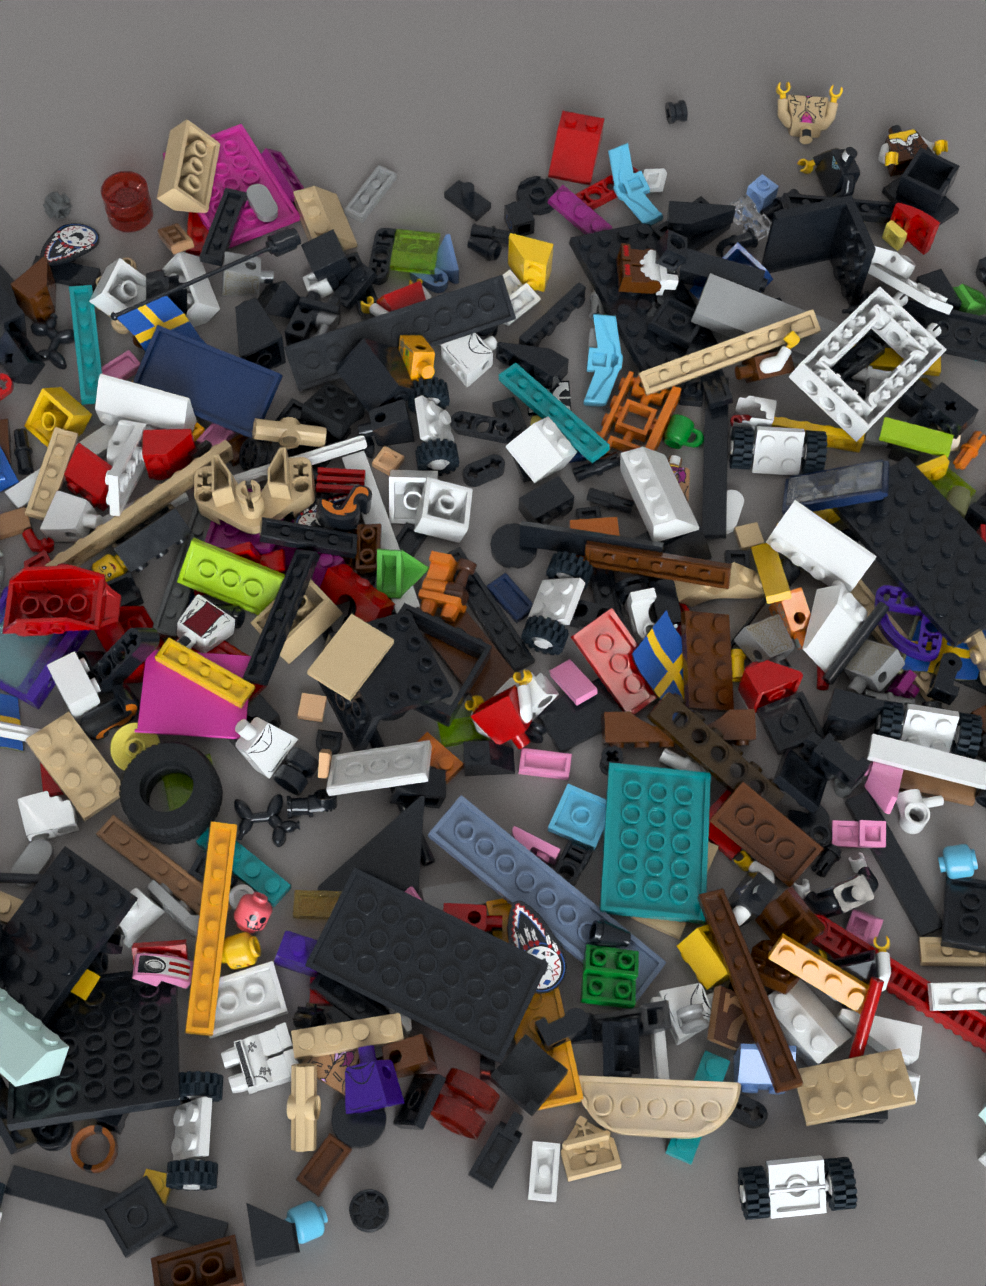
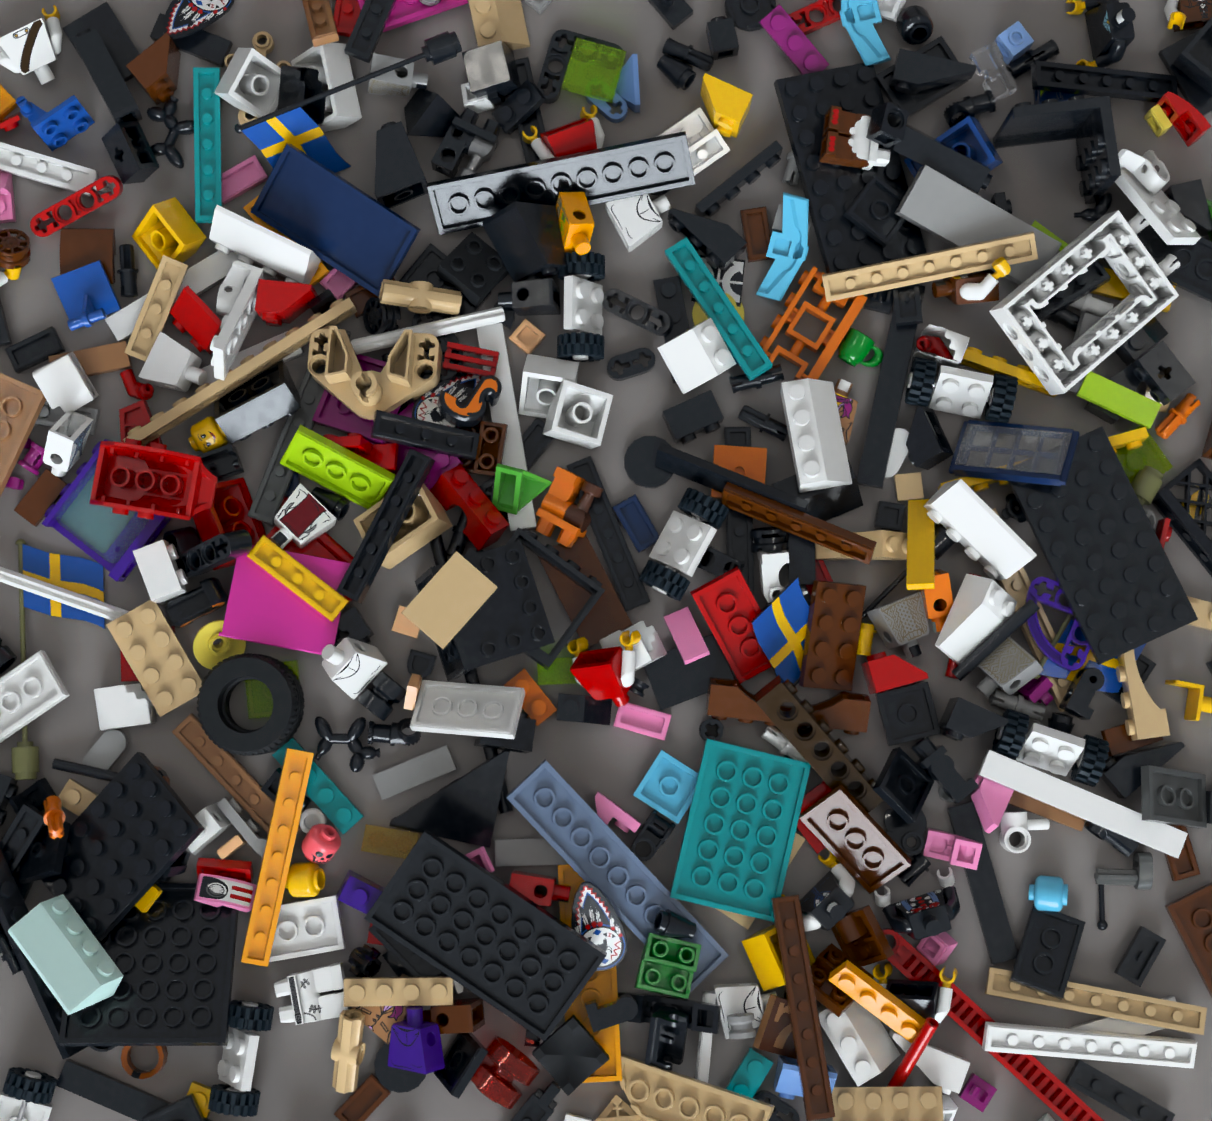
camera: 10 degrees right, 20 degrees up
(165, 928) = (231, 846): none -> light nougat tile
(335, 839) = (414, 772): none -> light grey tile
(578, 359) = (756, 233): none -> reddish brown tile
(677, 189) = (914, 25): none -> black head
(757, 494) = (927, 440): none -> black slope
(935, 1061) = (977, 1092): none -> magenta tile

